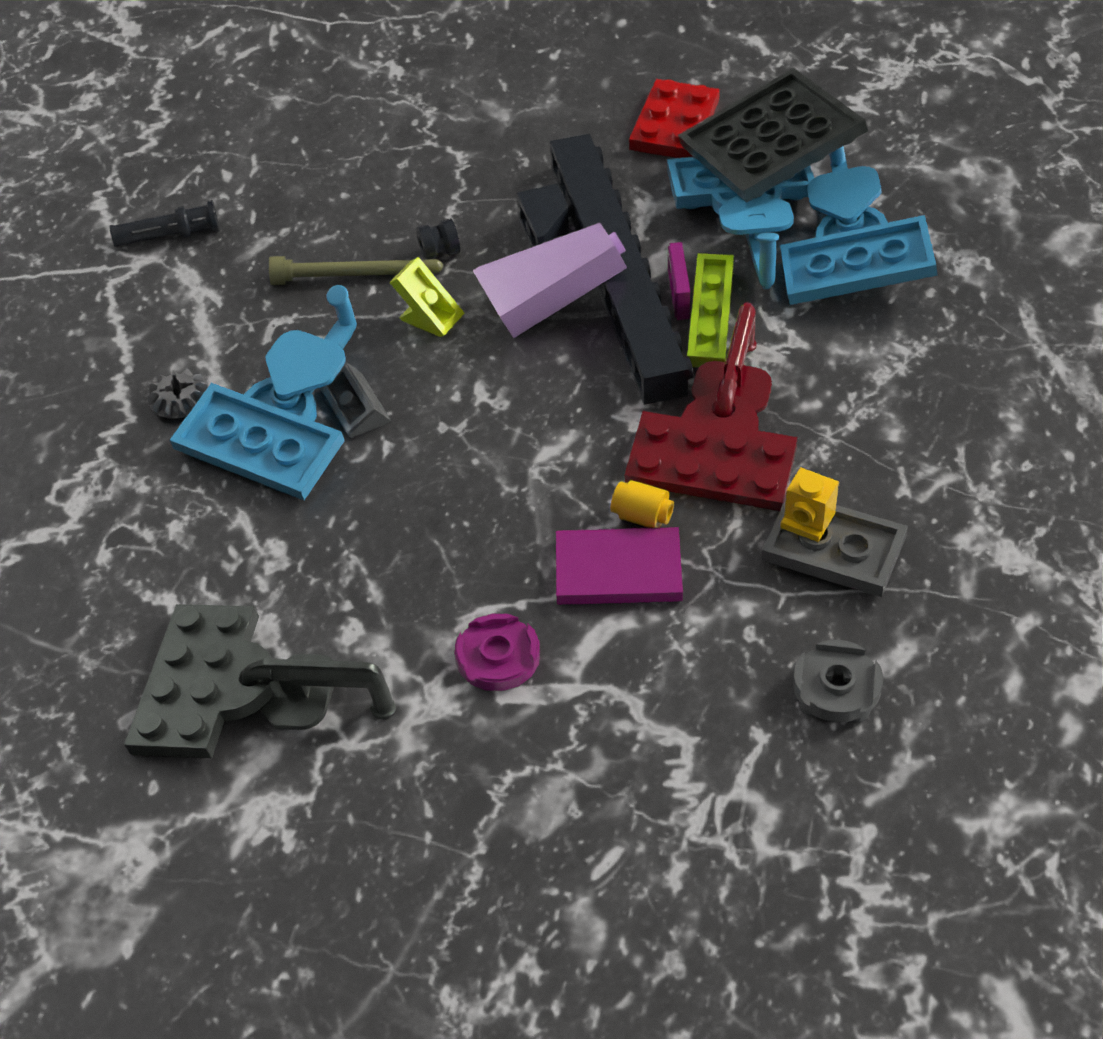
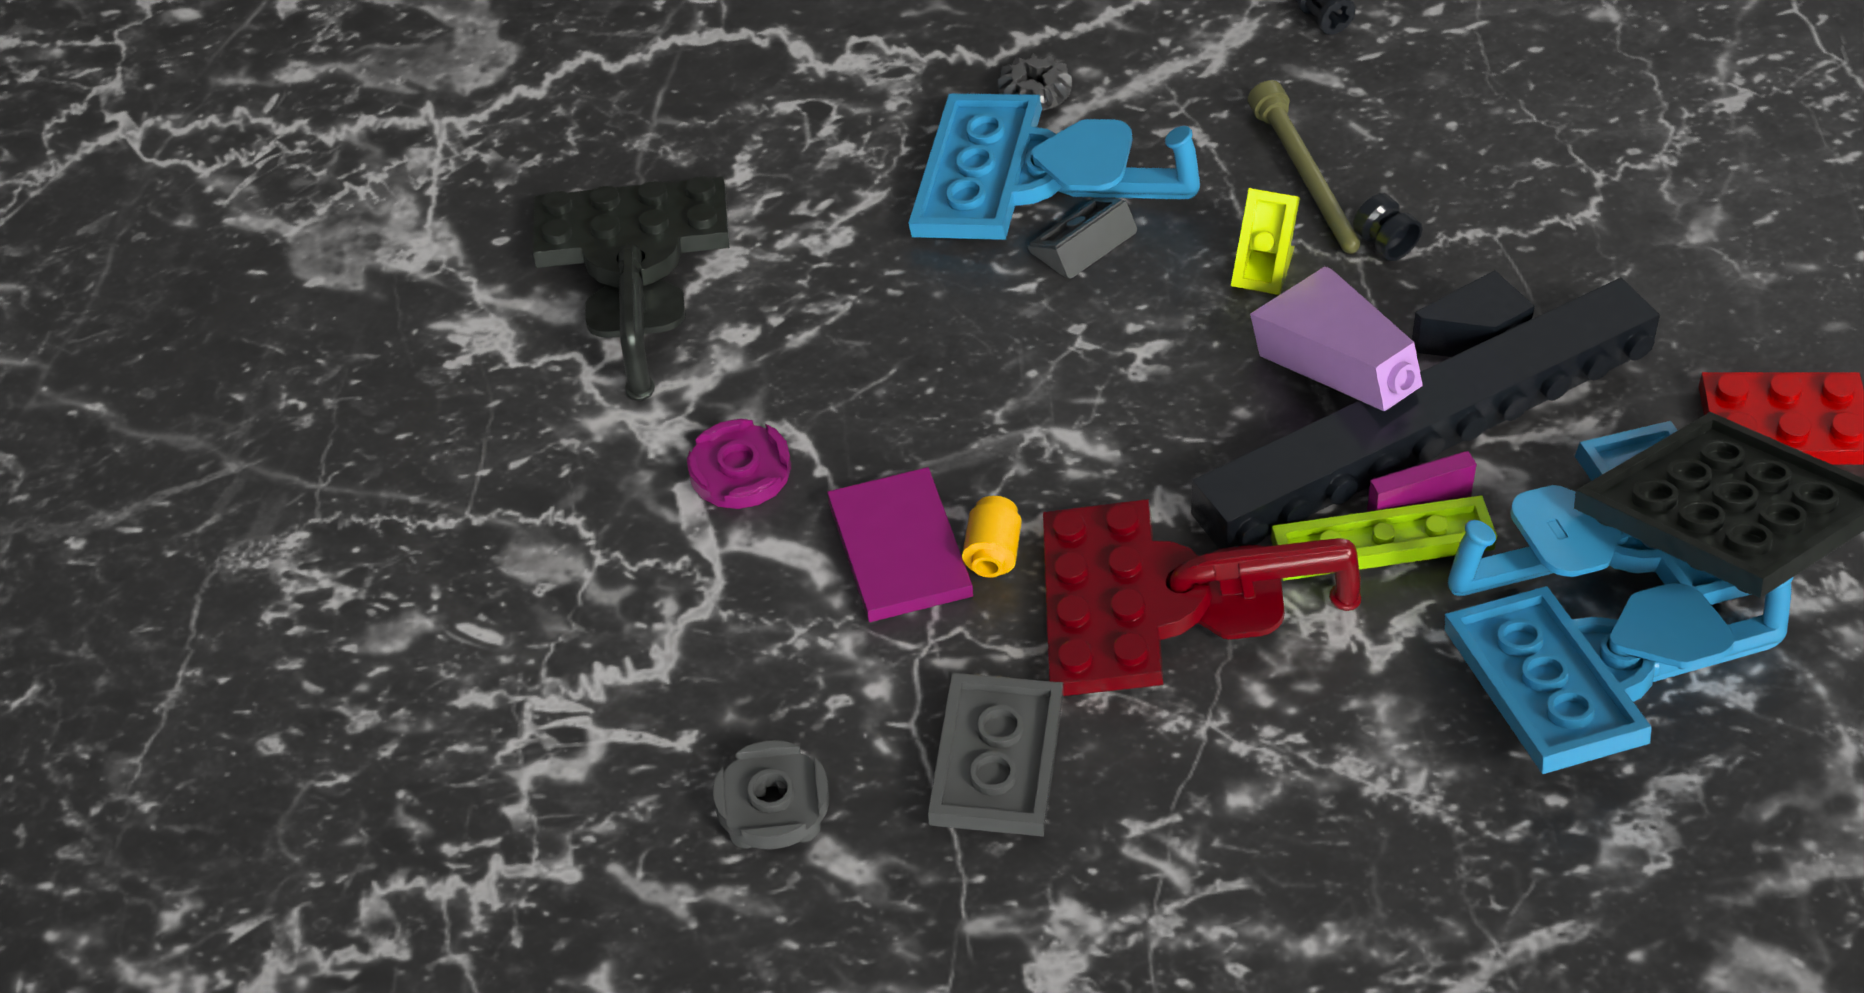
camera: 75 degrees right, 0 degrees up
(810, 504) = (1017, 692): yellow brick -> none

